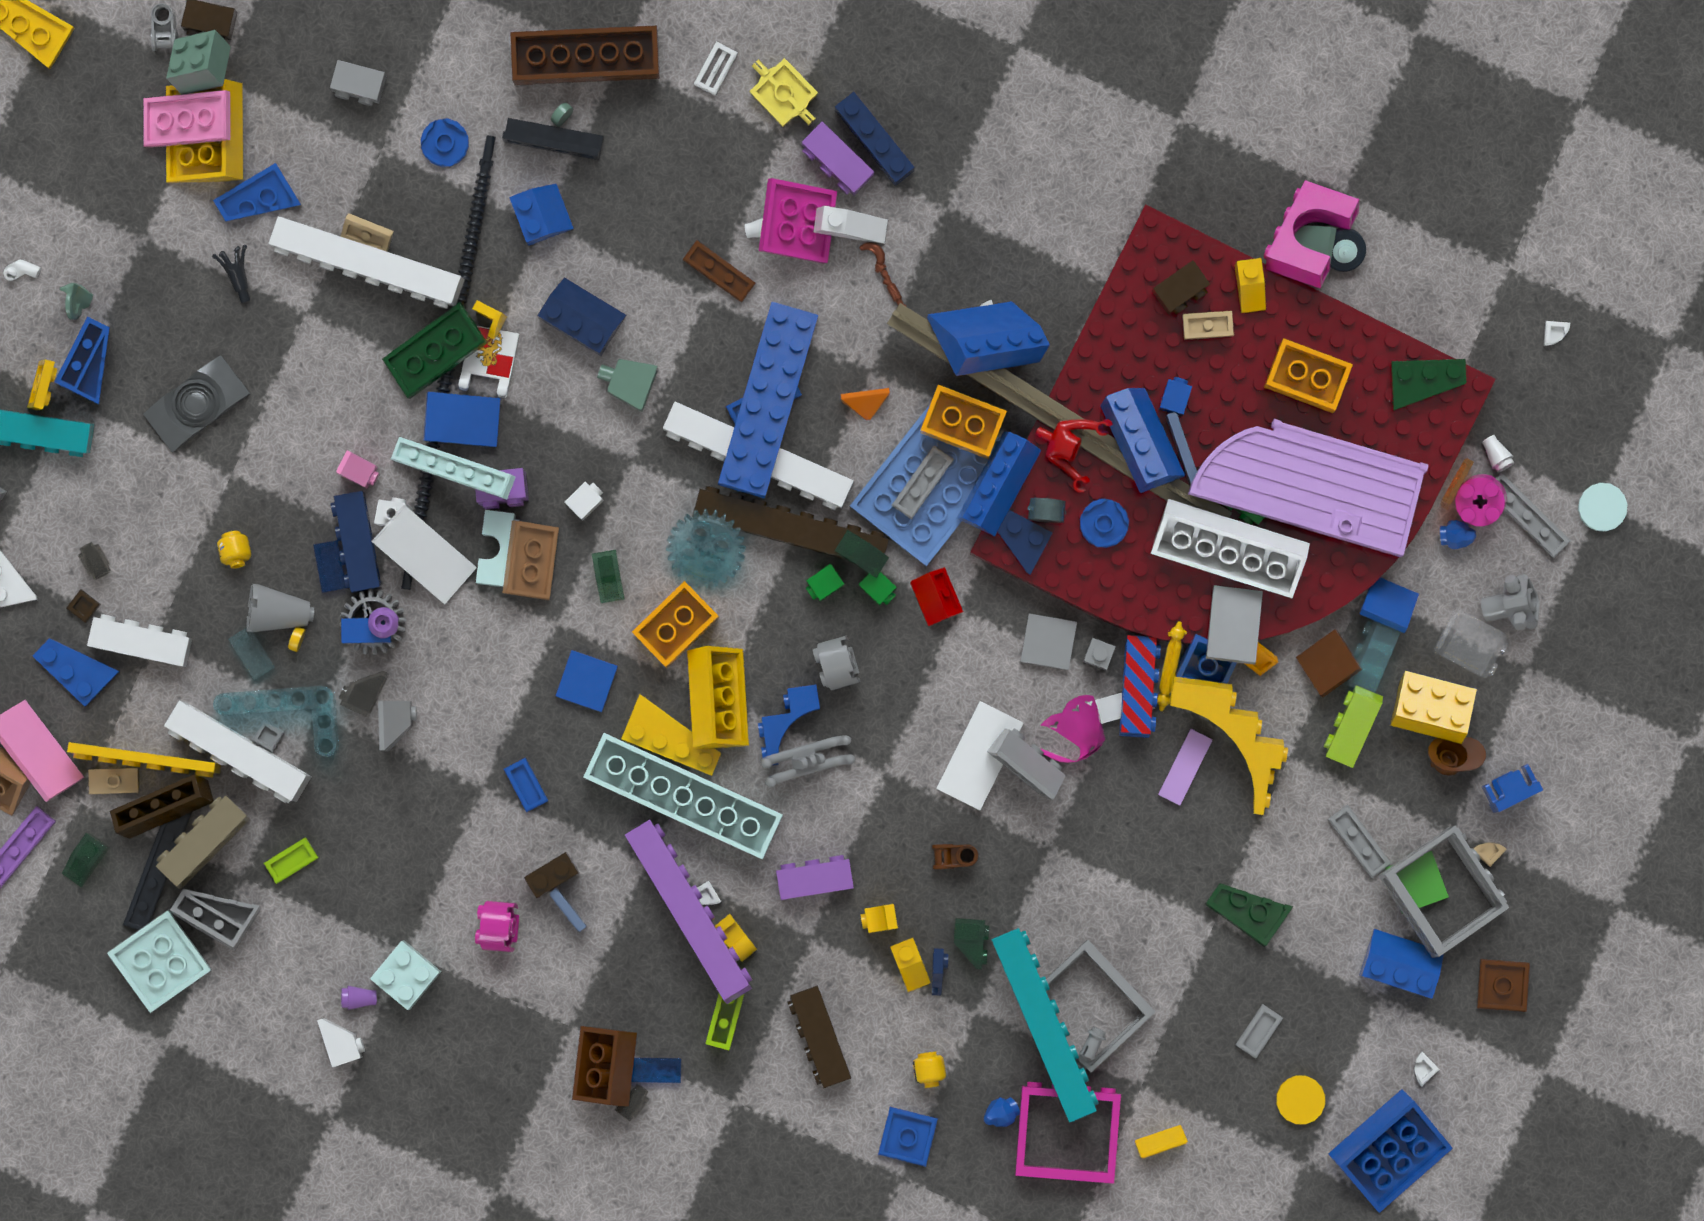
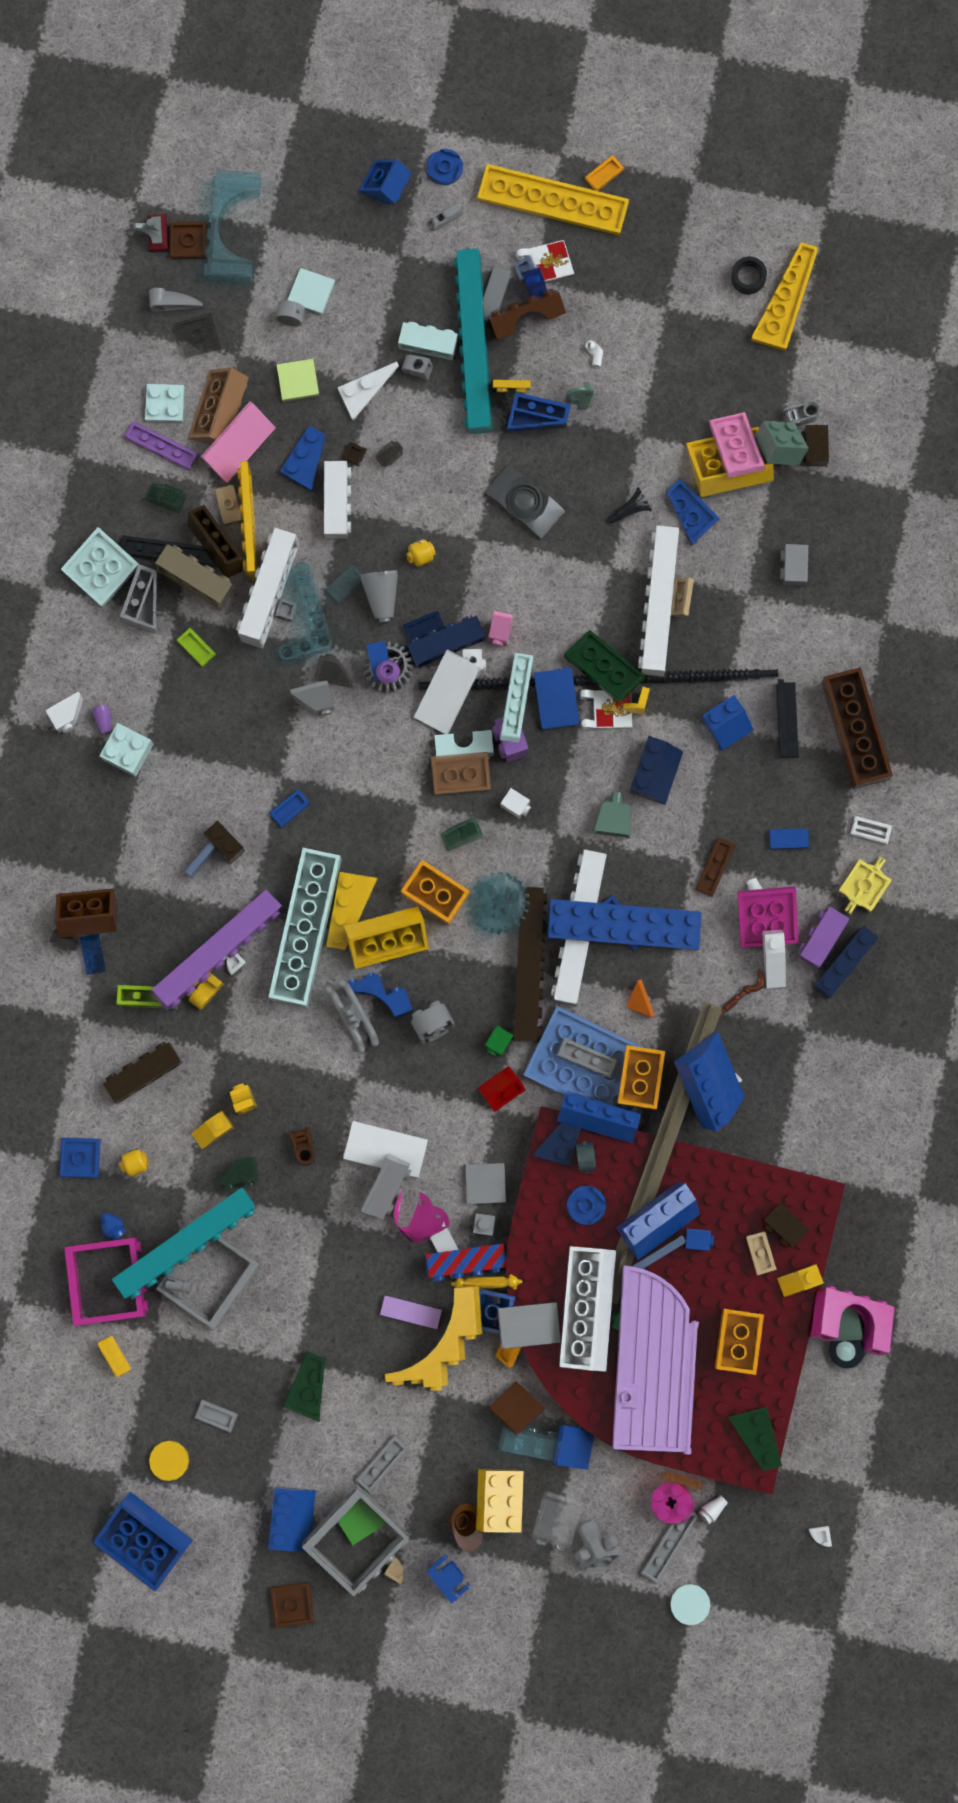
camera: 80 degrees right, 5 degrees down
(296, 639) = (363, 613): yellow tile -> none
(449, 148) = (759, 639): blue tile -> none
(497, 926) = (176, 809): dark pink brick -> none
(561, 114) = (807, 721): sand green tile -> none
(586, 681) = (378, 836): blue tile -> none
(704, 172) = (788, 839): none -> blue tile
(814, 877) = (263, 1042): medium lavender brick -> none
(824, 583) = (492, 999): green brick -> none
(861, 554) = (520, 1021): clear green slope -> none
(940, 962) = (216, 1152): dark blue wing -> none
(1065, 445) = (639, 1160): red piece -> none
(1353, 725) = (471, 1438): lime brick -> none
(1424, 1069) = (213, 1555): white tile -> none
(1457, 534) = (641, 1490): blue rock -> none

